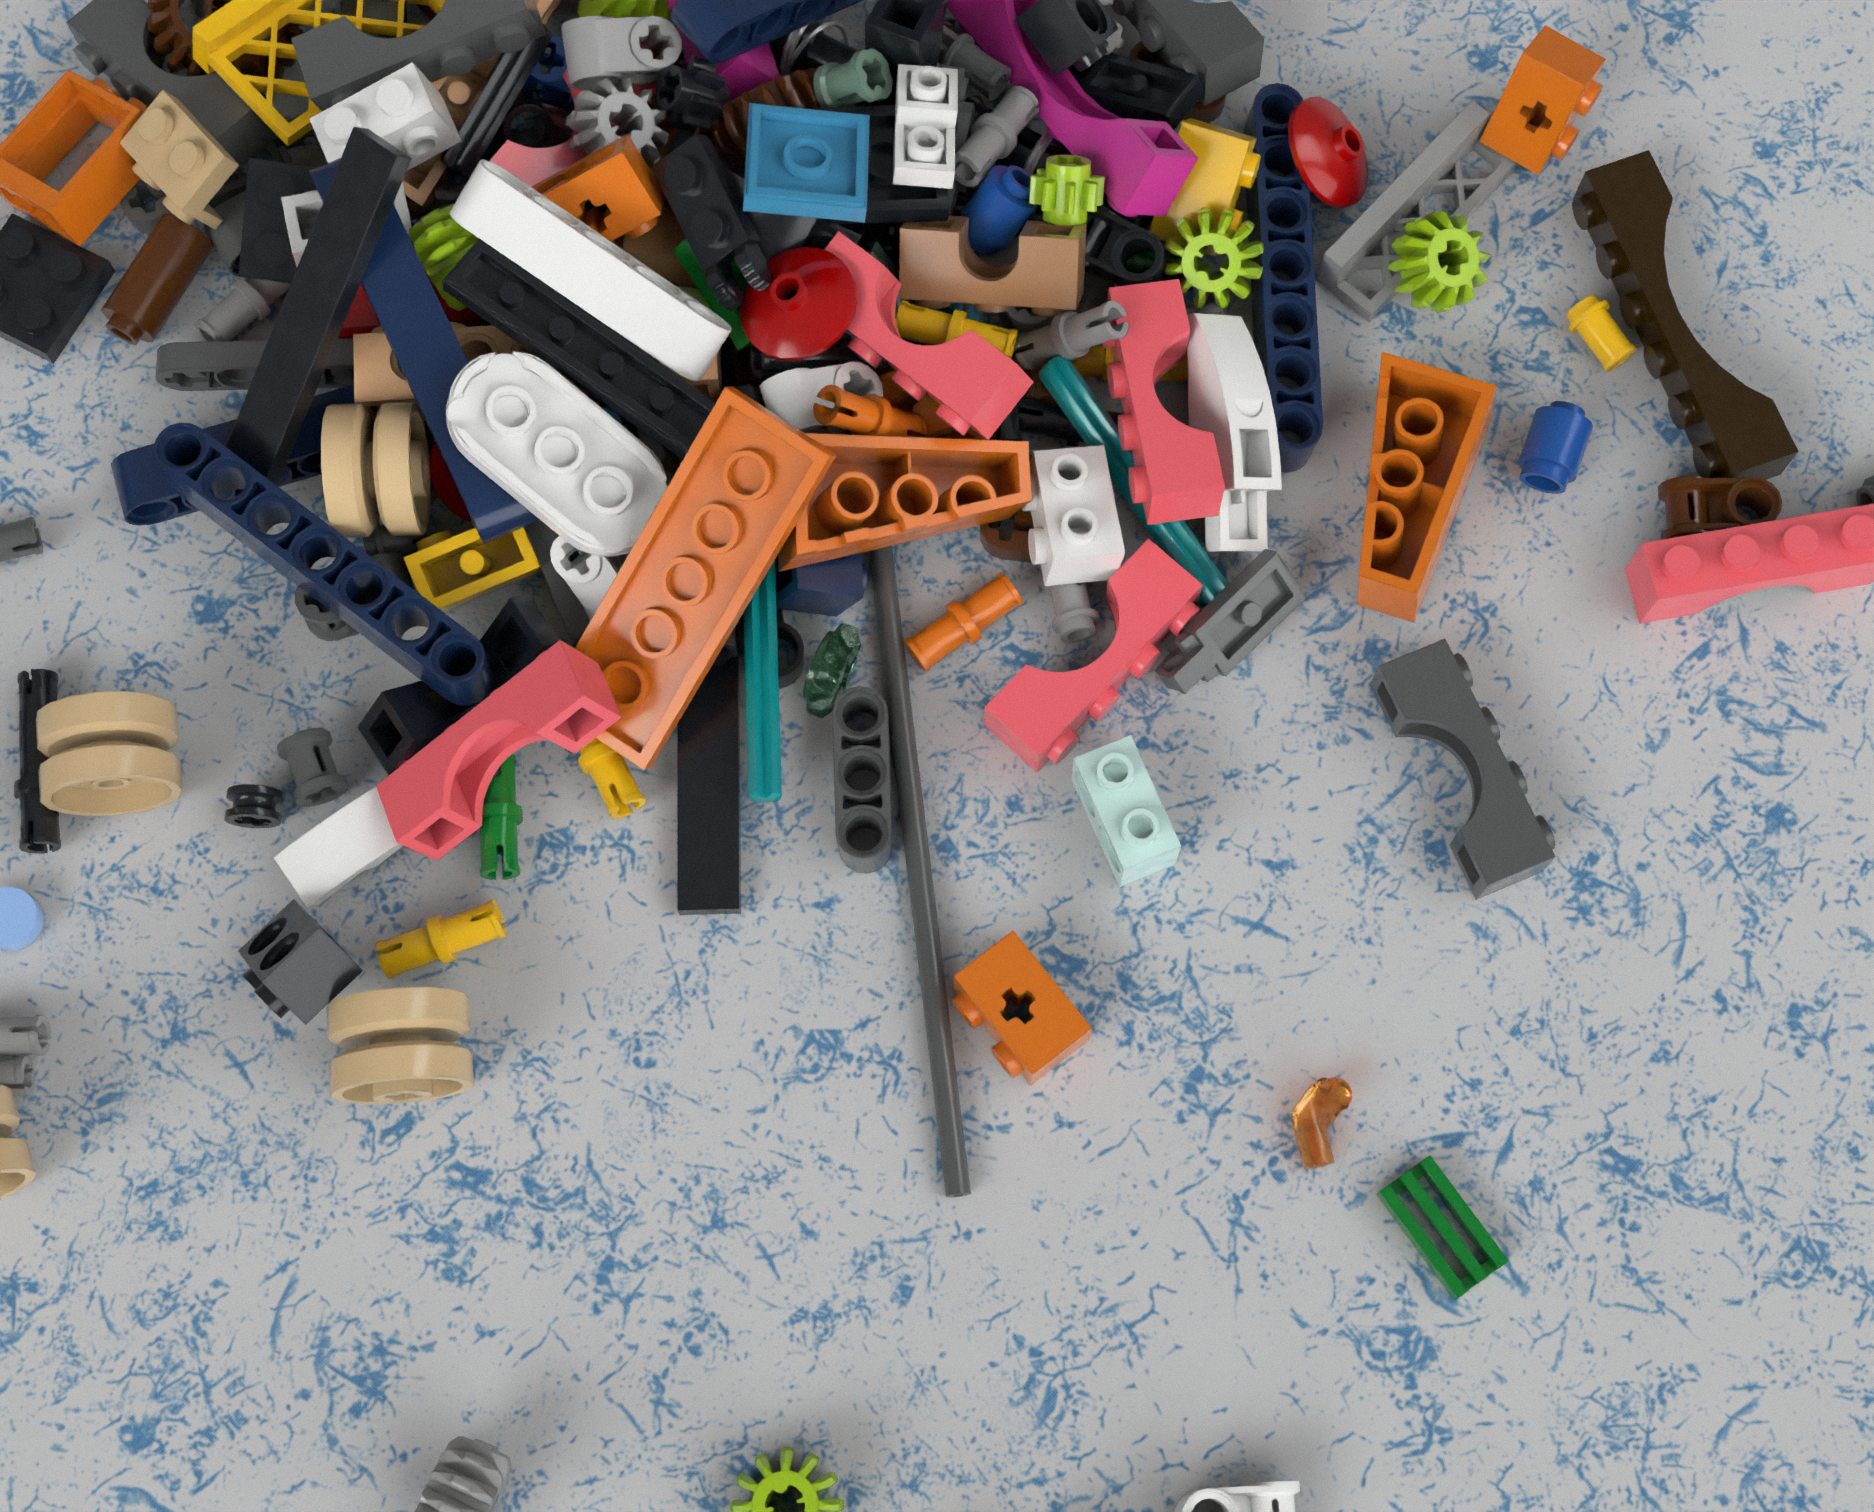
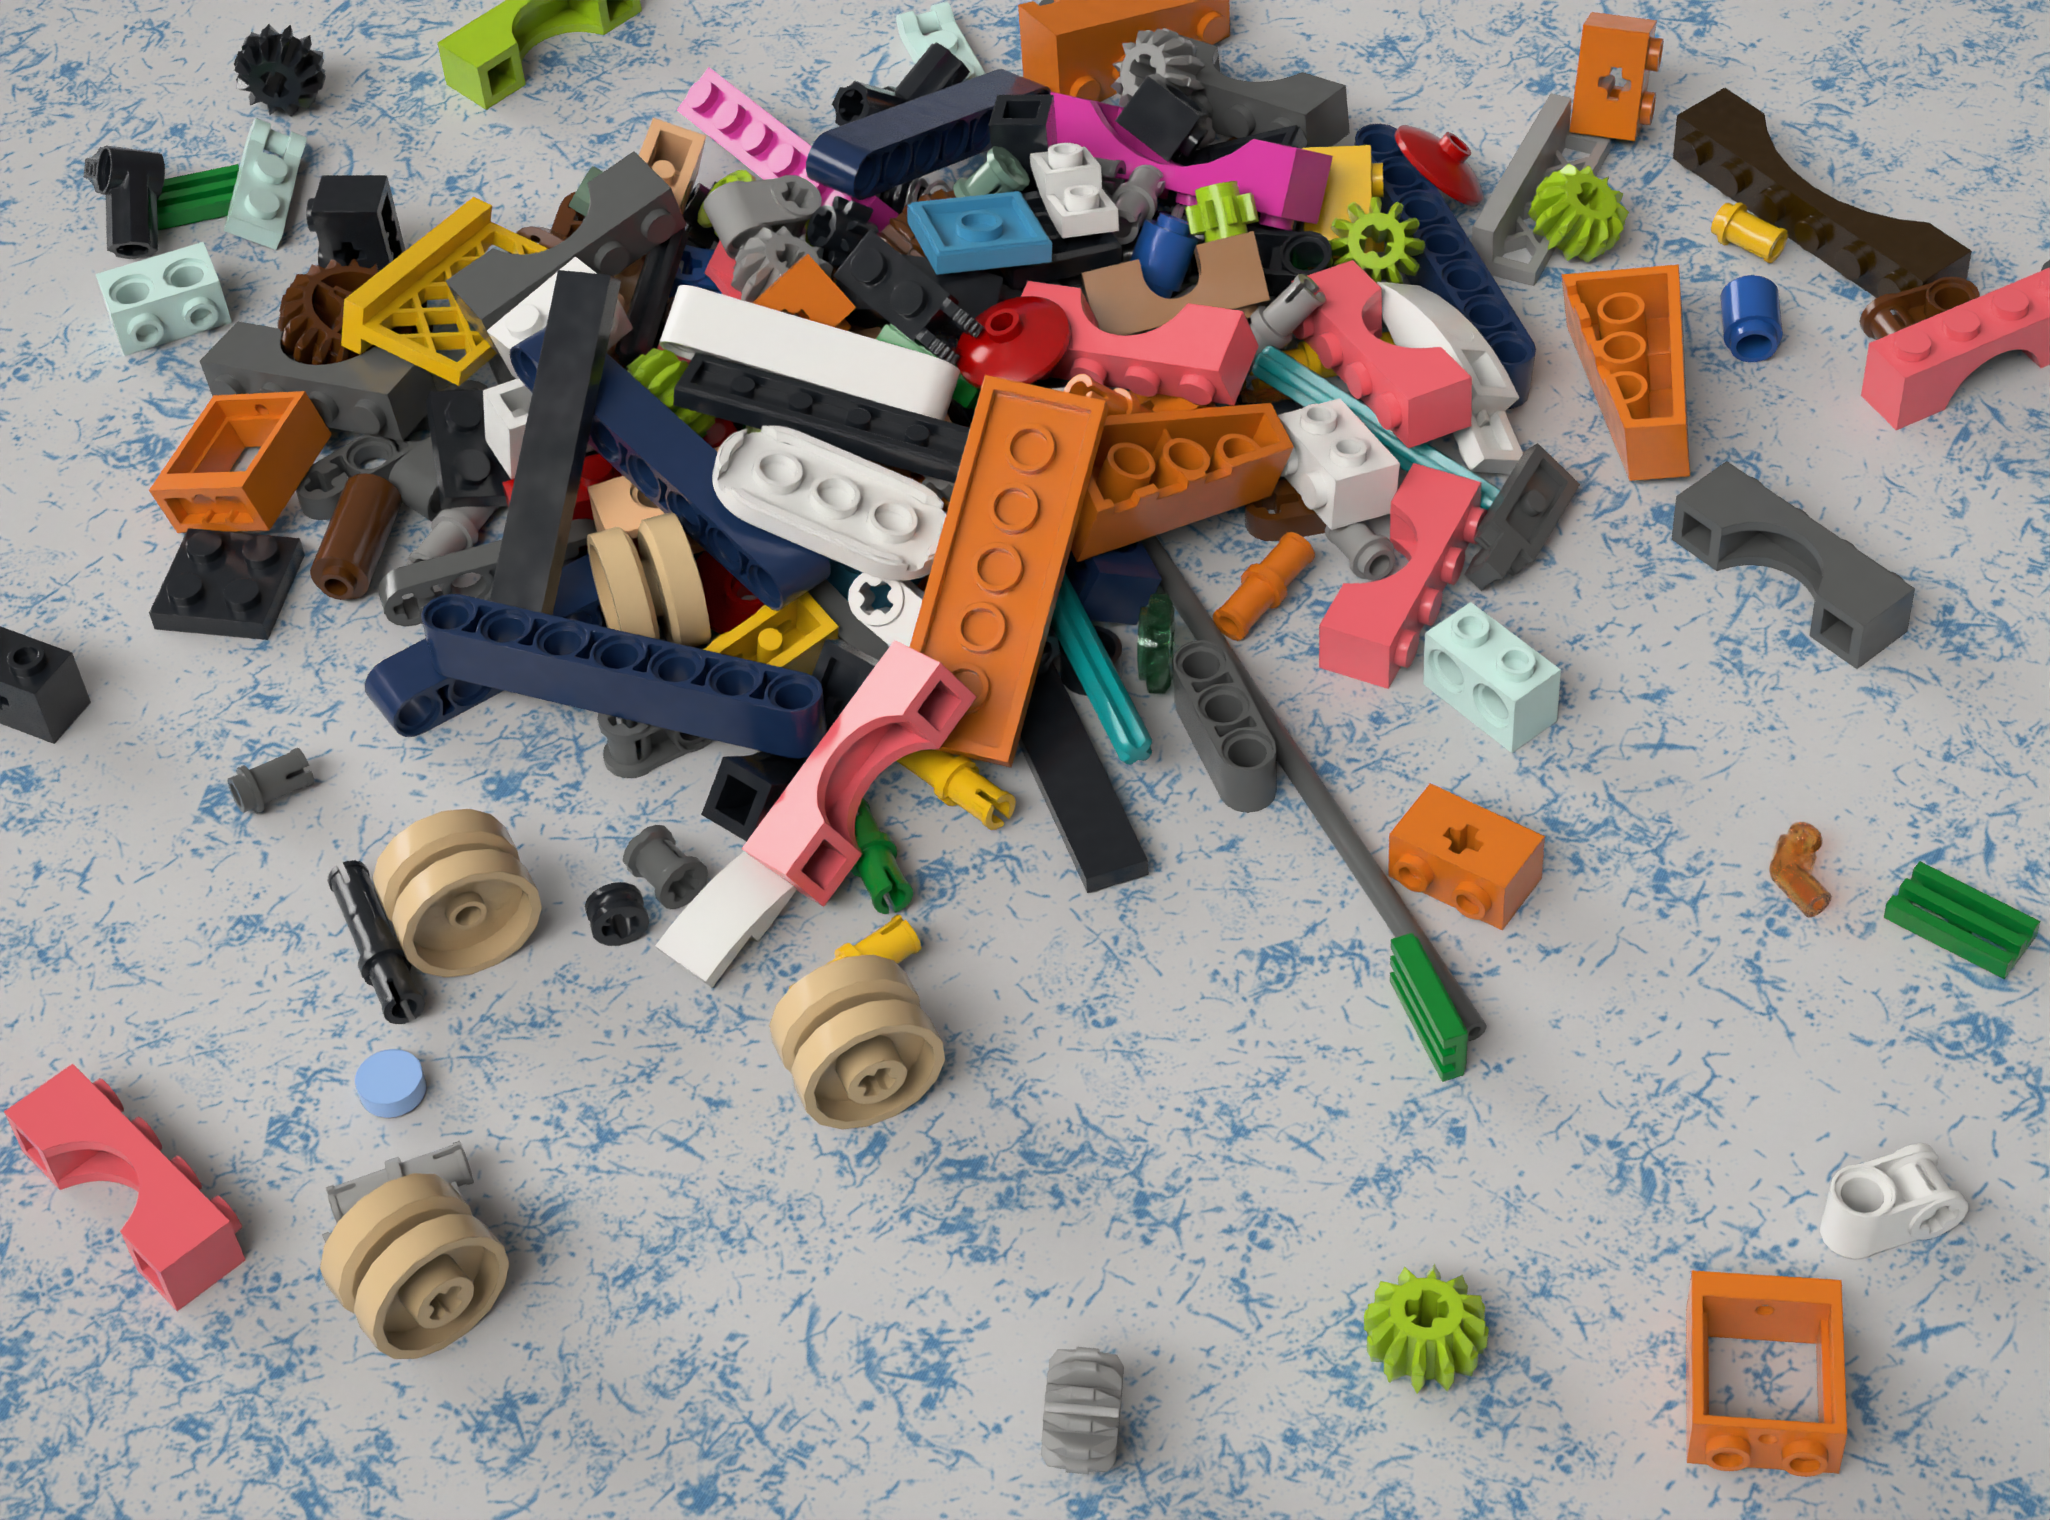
camera: 15 degrees left, 25 degrees down
(179, 158) = (357, 419): tan bracket -> none
(297, 964) = (723, 1002): black brick -> none
(923, 1164) = (1428, 1007): none -> green tile

